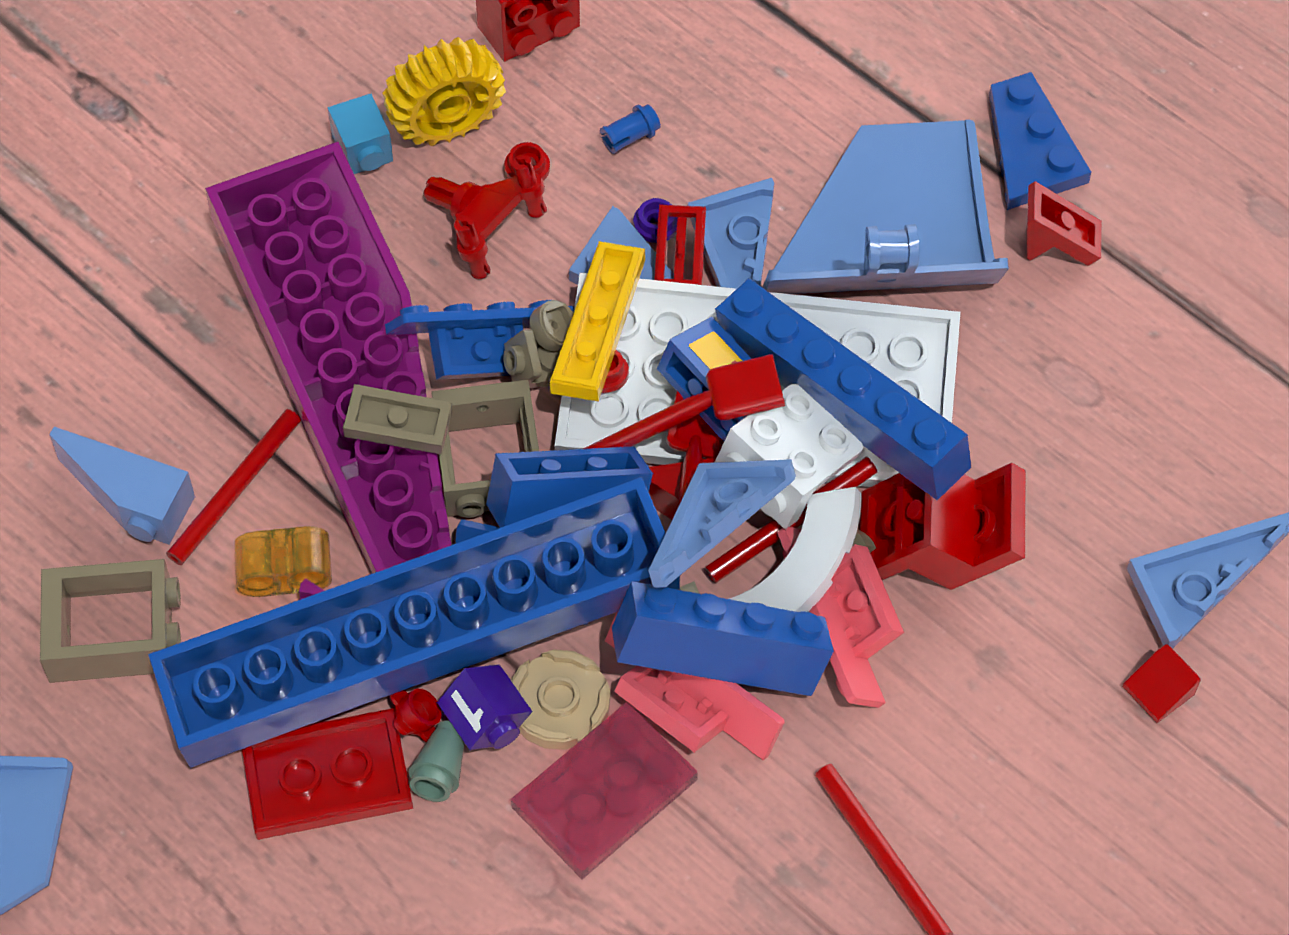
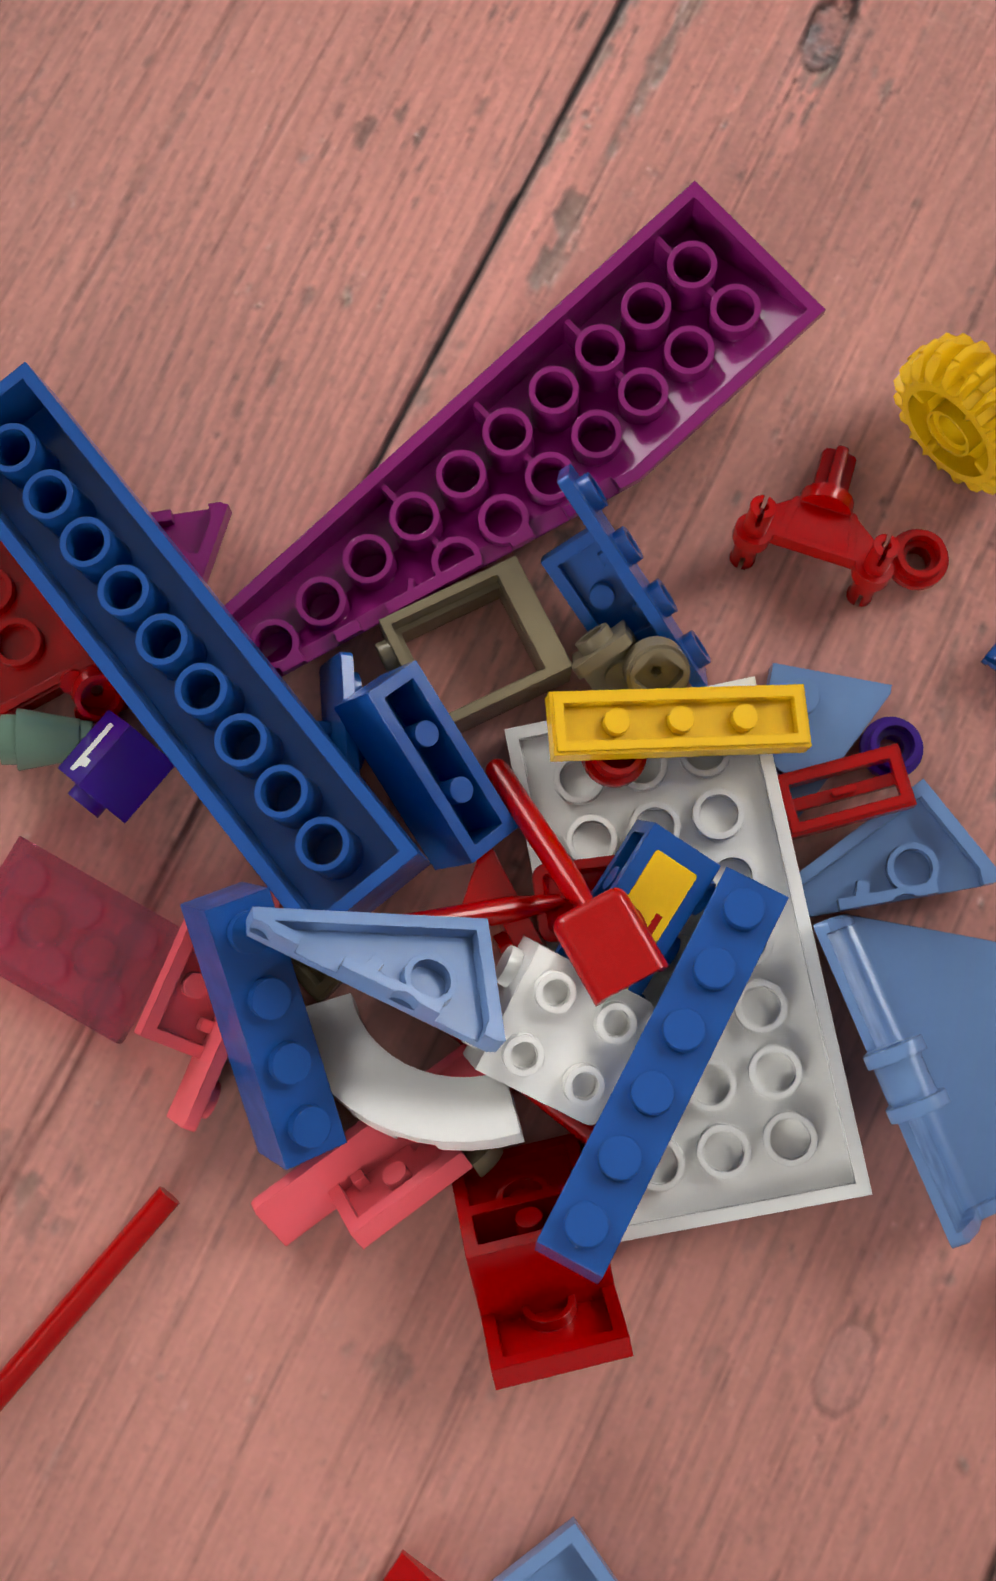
camera: 70 degrees right, 20 degrees up
(113, 659) = (93, 262): dark tan window -> none
(135, 490) = (287, 266): medium blue slope -> none
(233, 487) = (332, 381): red piece -> none
(281, 559) = (249, 472): clear yellow beam -> none
(361, 133) = (879, 341): dark azure brick -> none
(398, 419) = (445, 528): dark tan plate -> none
(565, 697) = (171, 850): tan tile -> none

